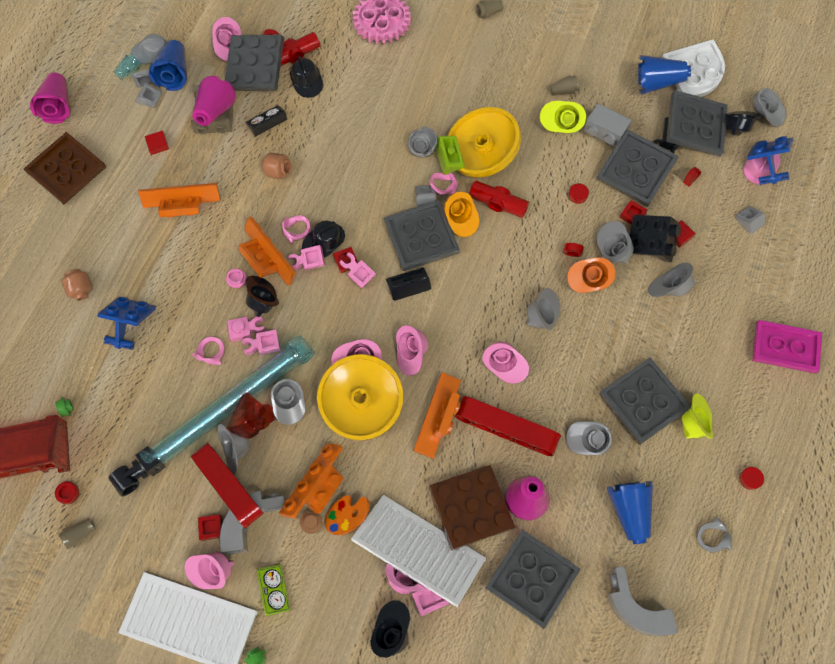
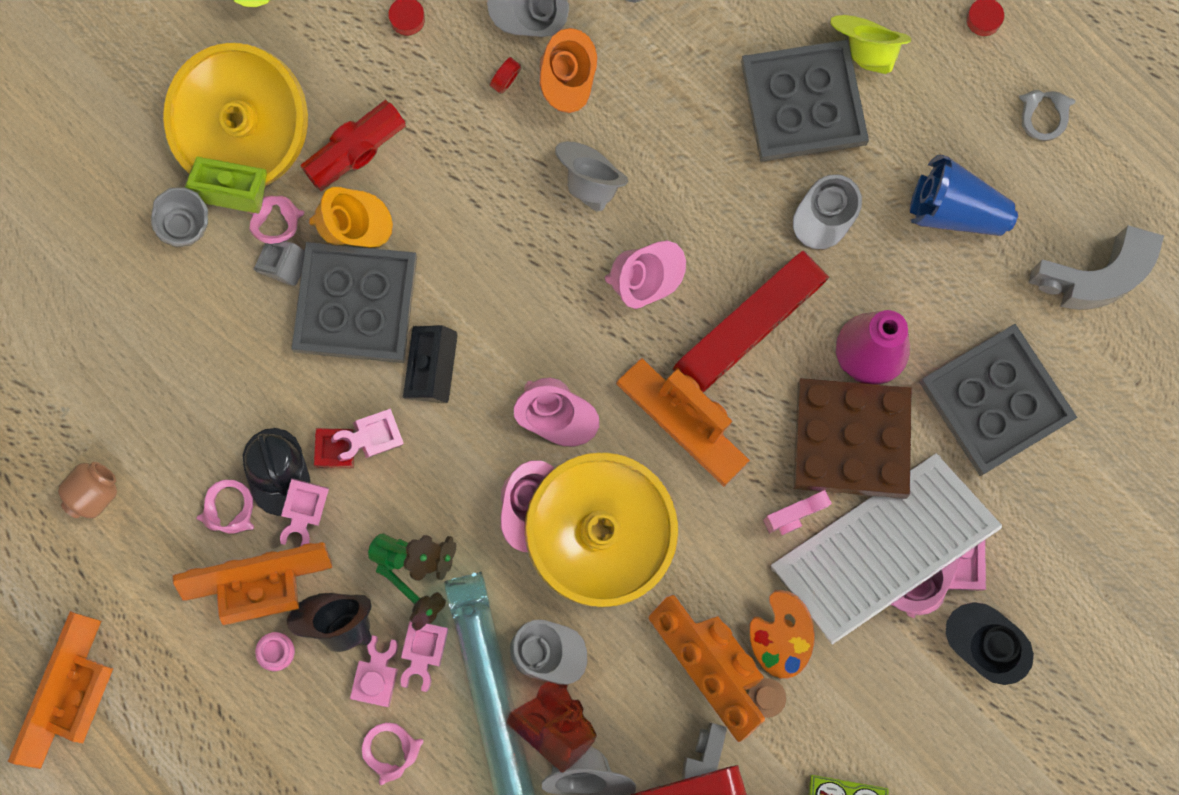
camera: 70 degrees left, 10 degrees up
(303, 312) = (419, 558): none -> dark brown plant
(411, 491) = (789, 518): none -> bright pink plate

